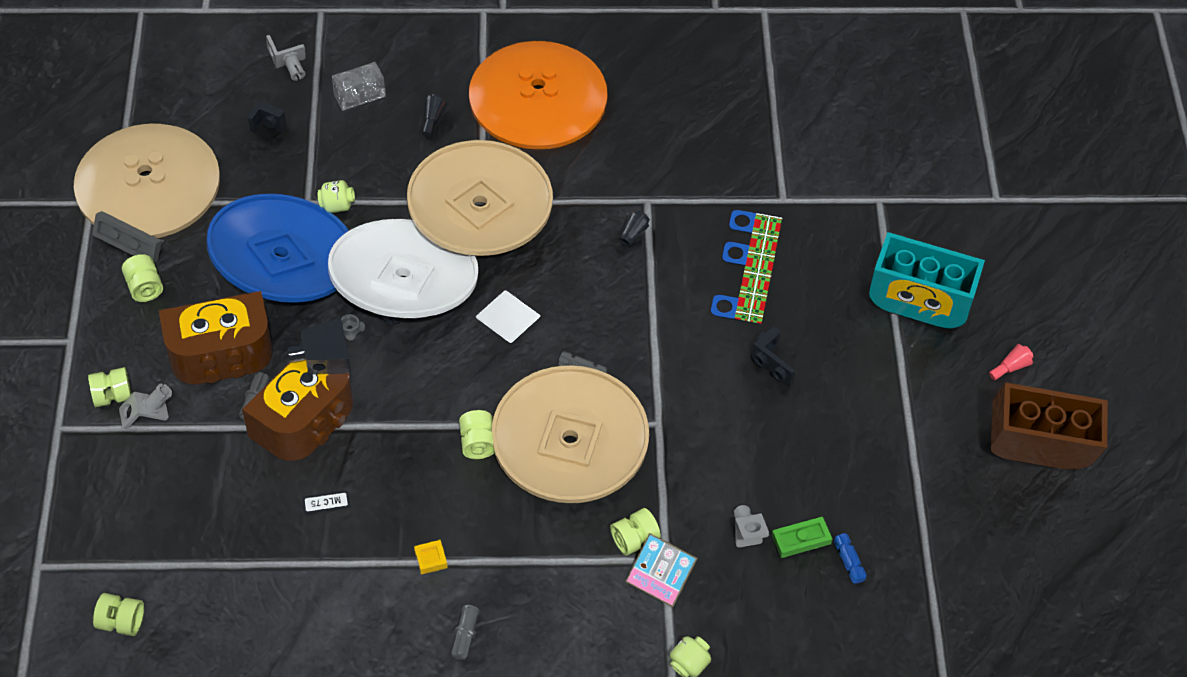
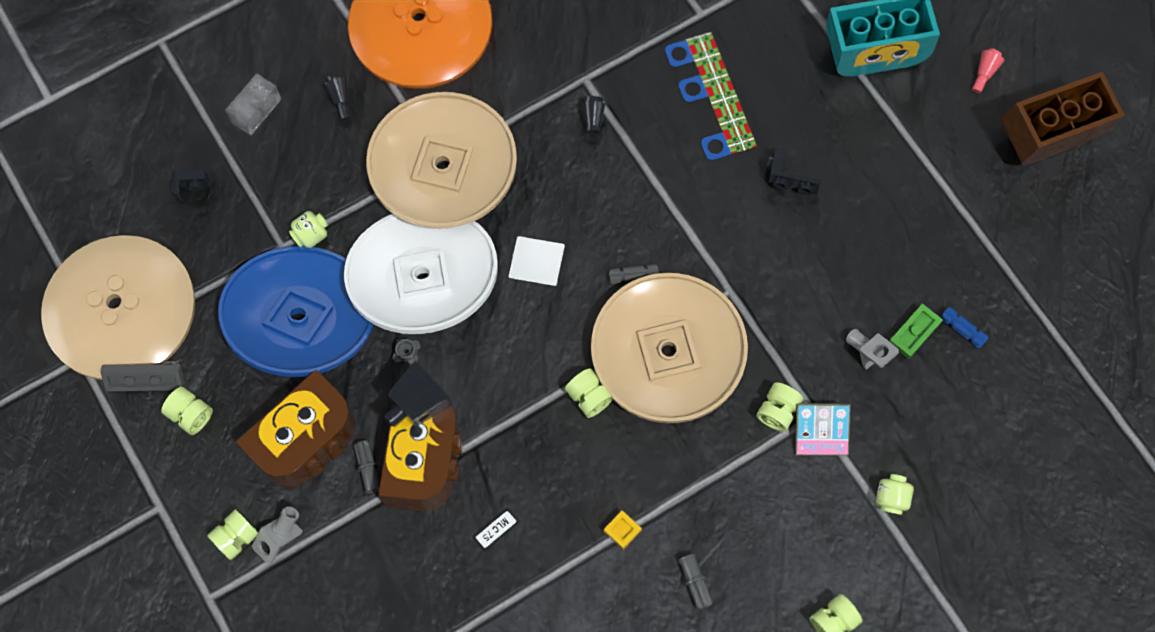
camera: 25 degrees left, 15 degrees up
(288, 57) = (167, 109): light grey bracket -> none

